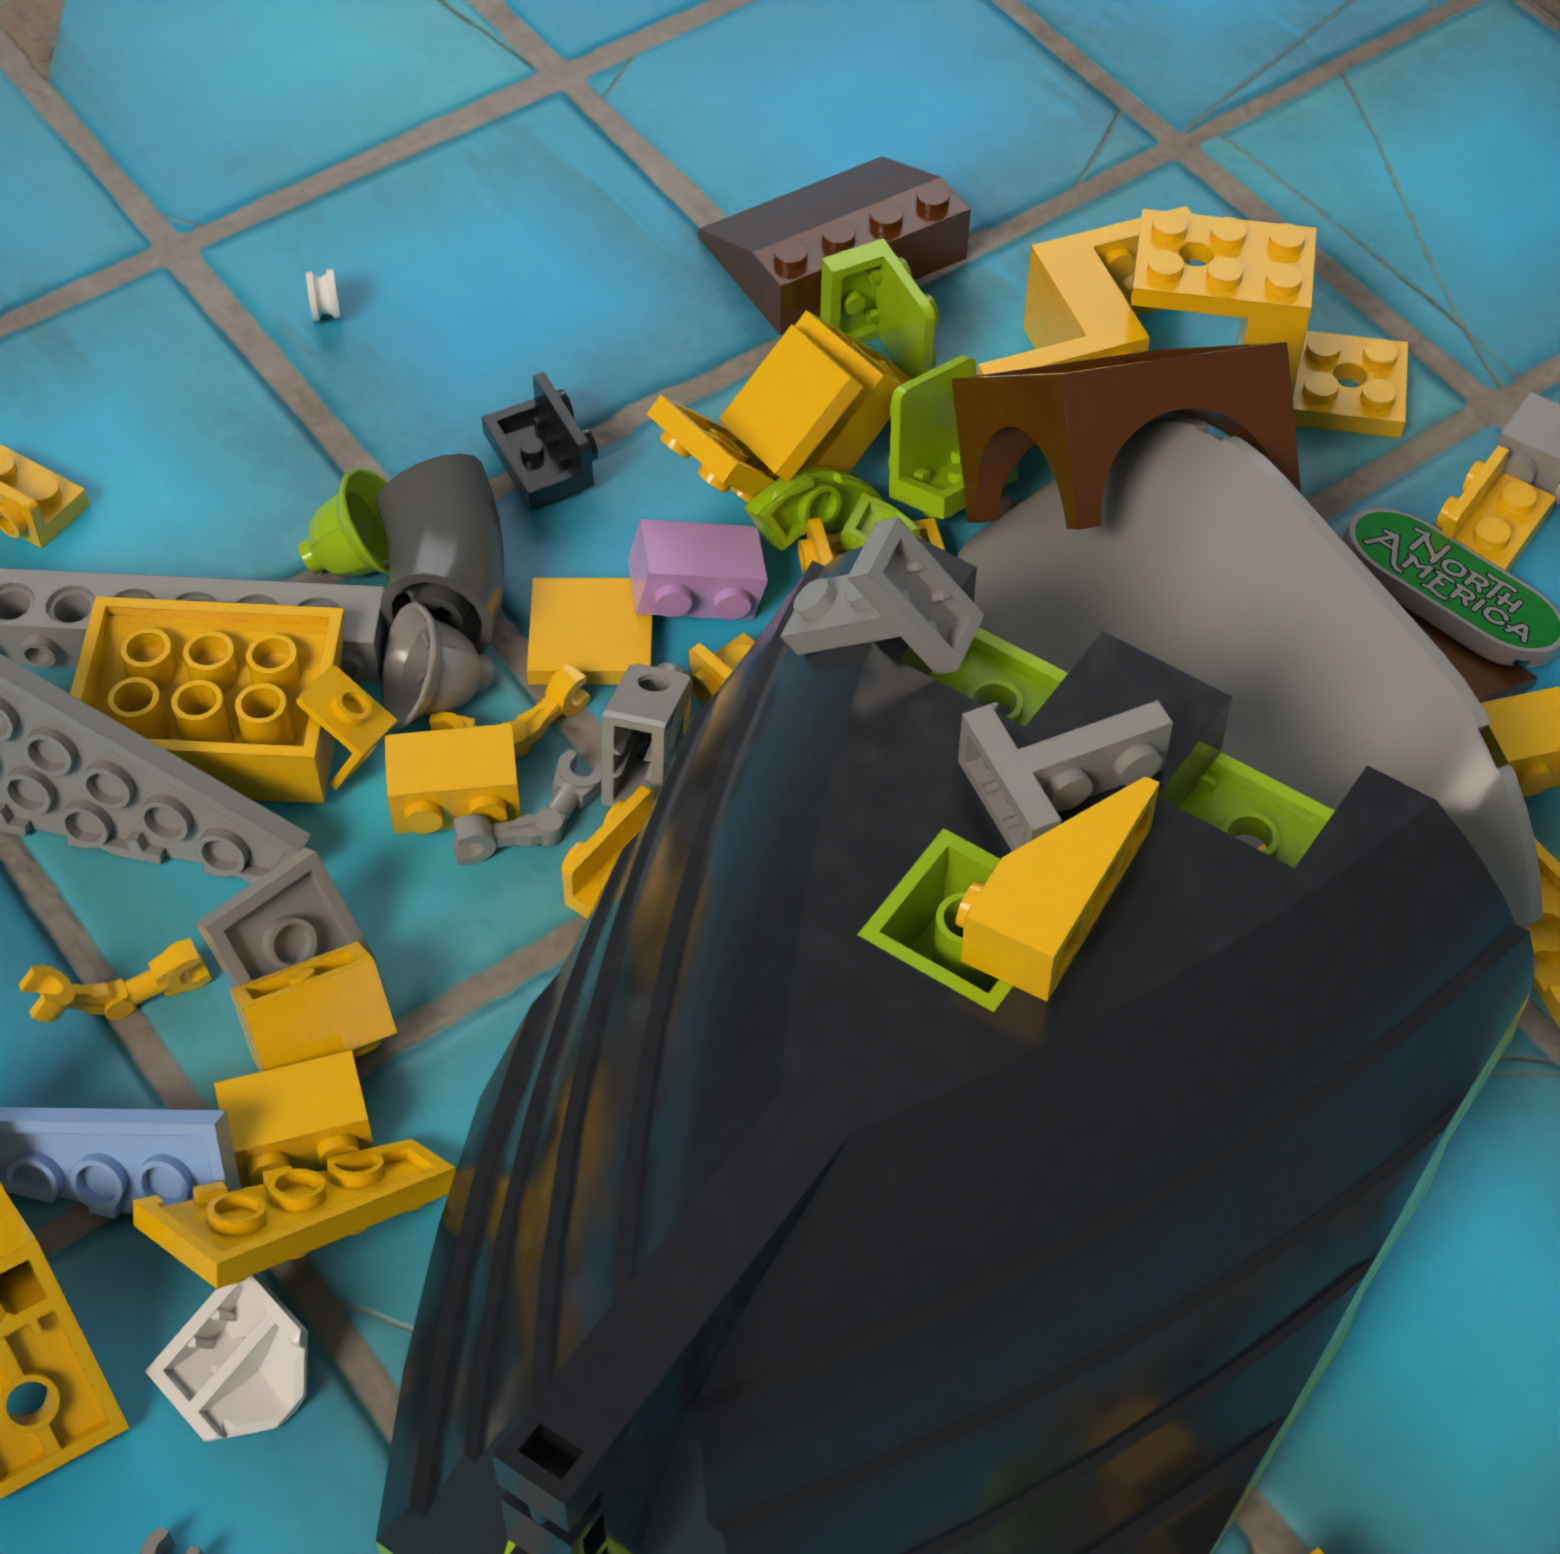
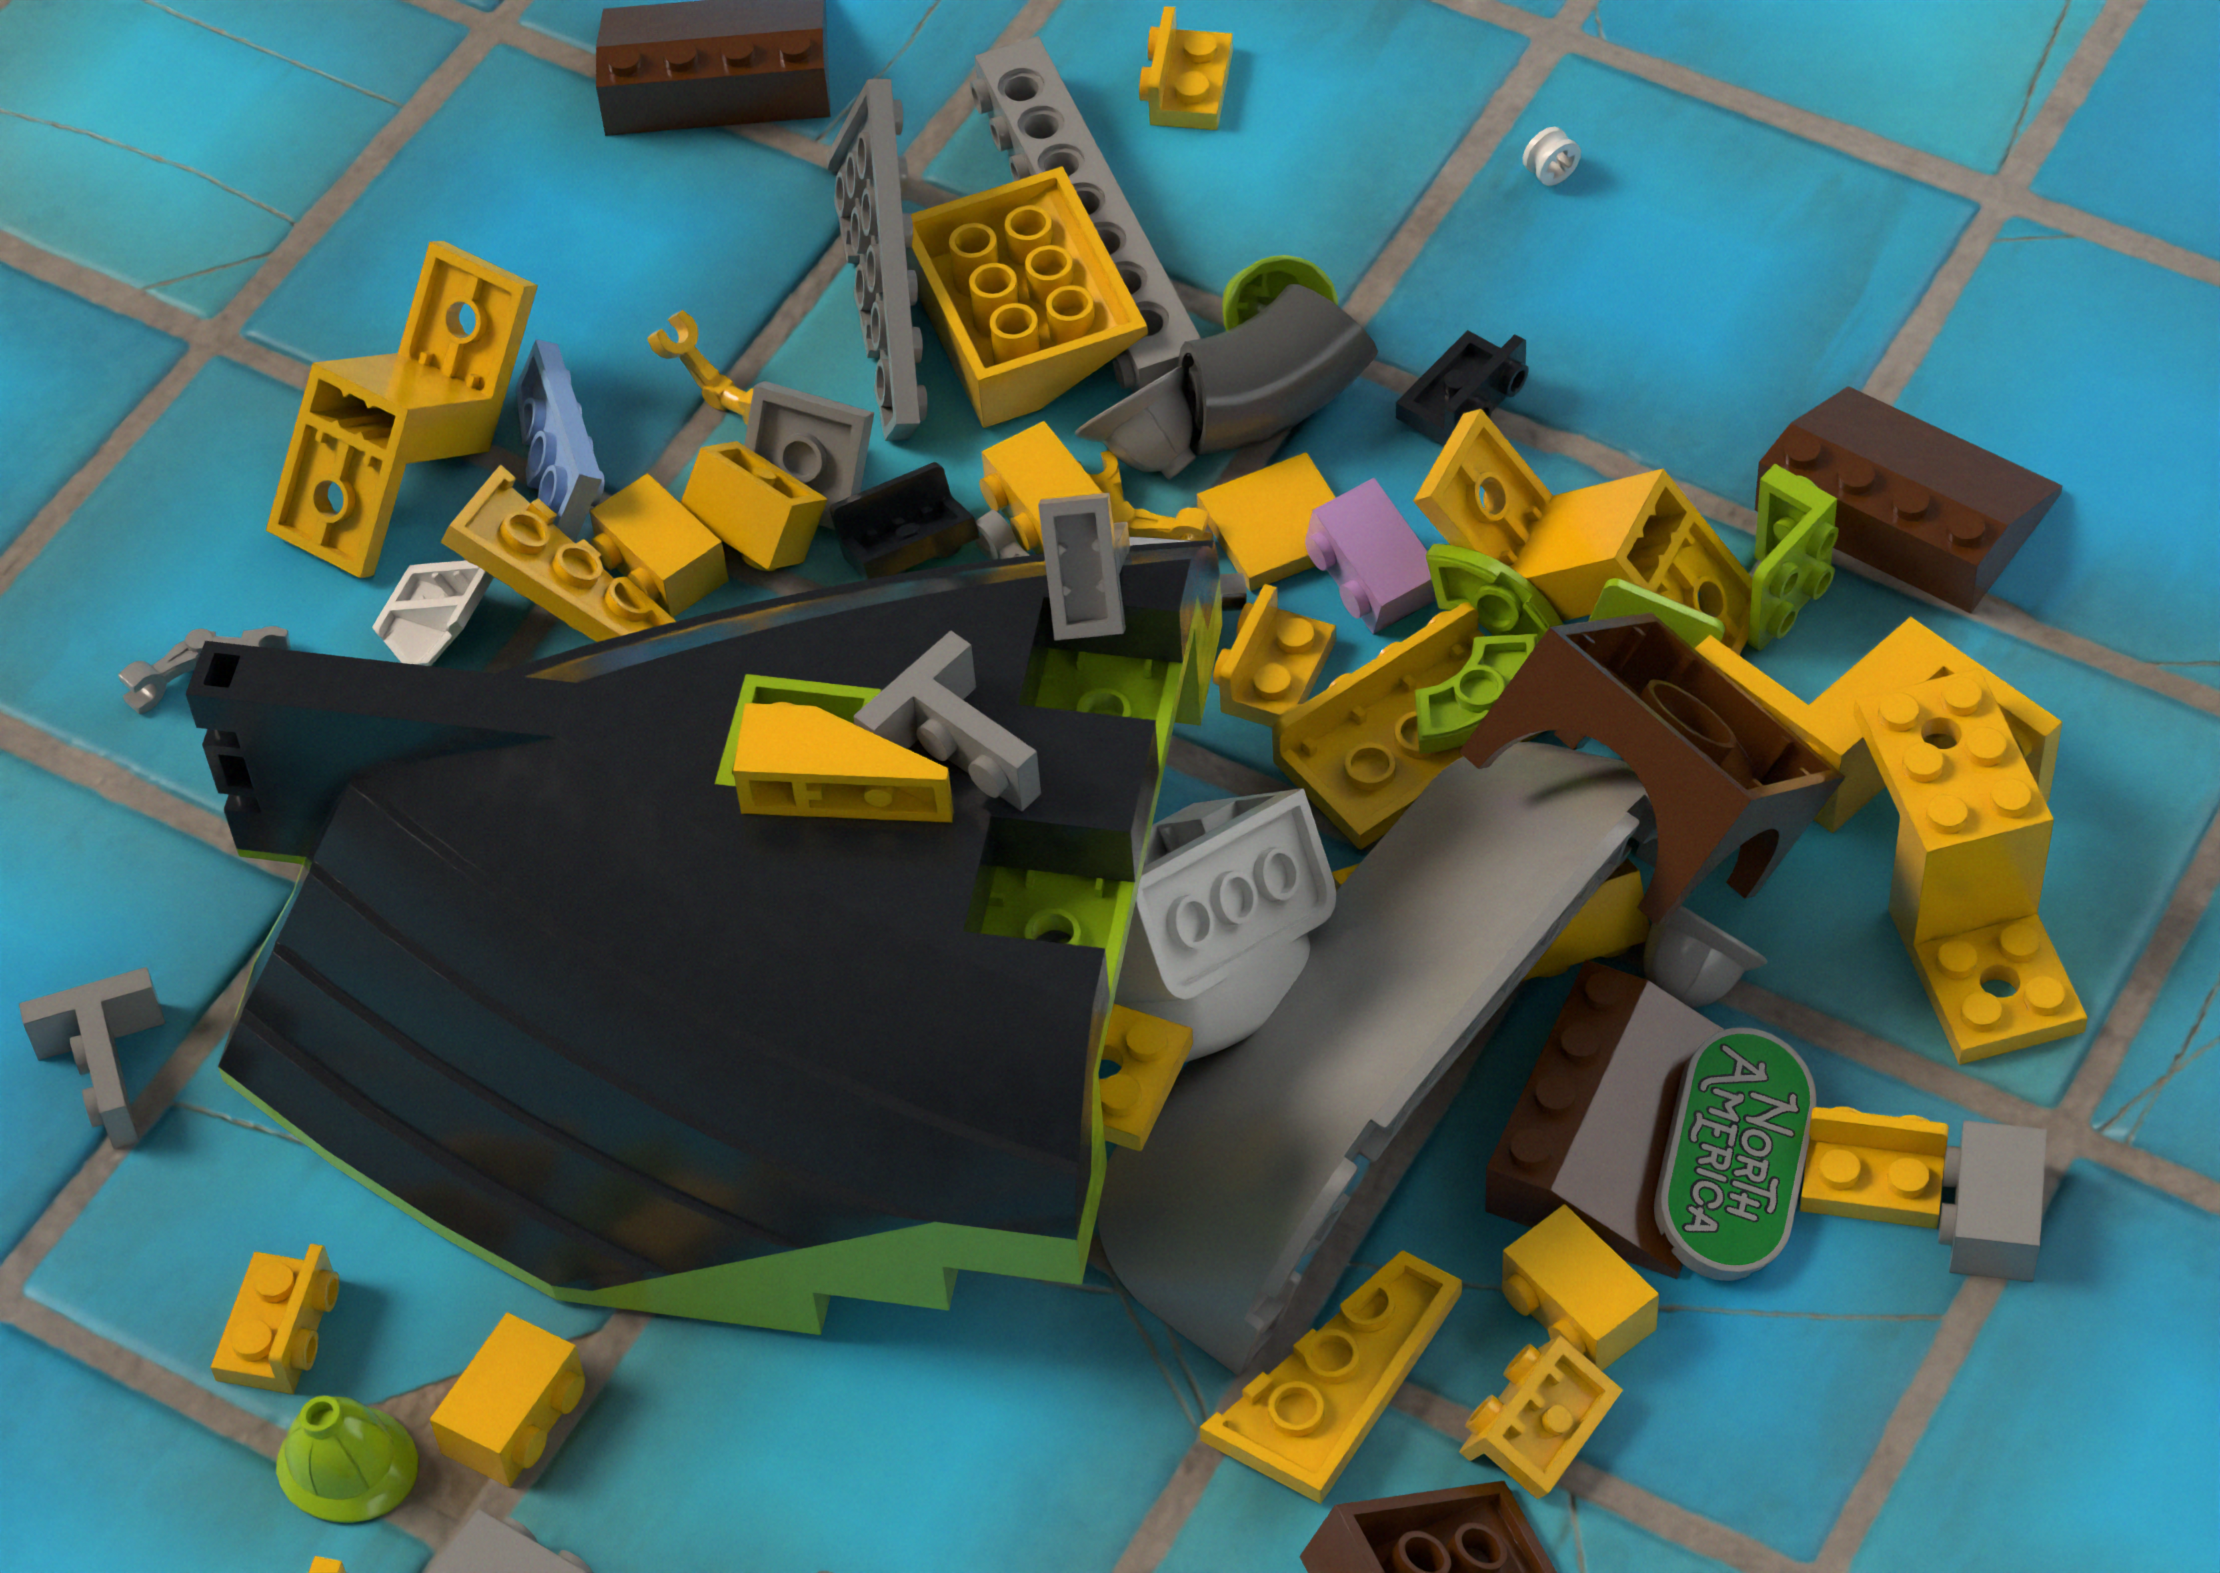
camera: 70 degrees right, 0 degrees up
(348, 716) = (1039, 384): yellow bracket -> none
(418, 904) = (902, 523): none -> black bracket
(790, 403) = (1555, 513): yellow tile -> none

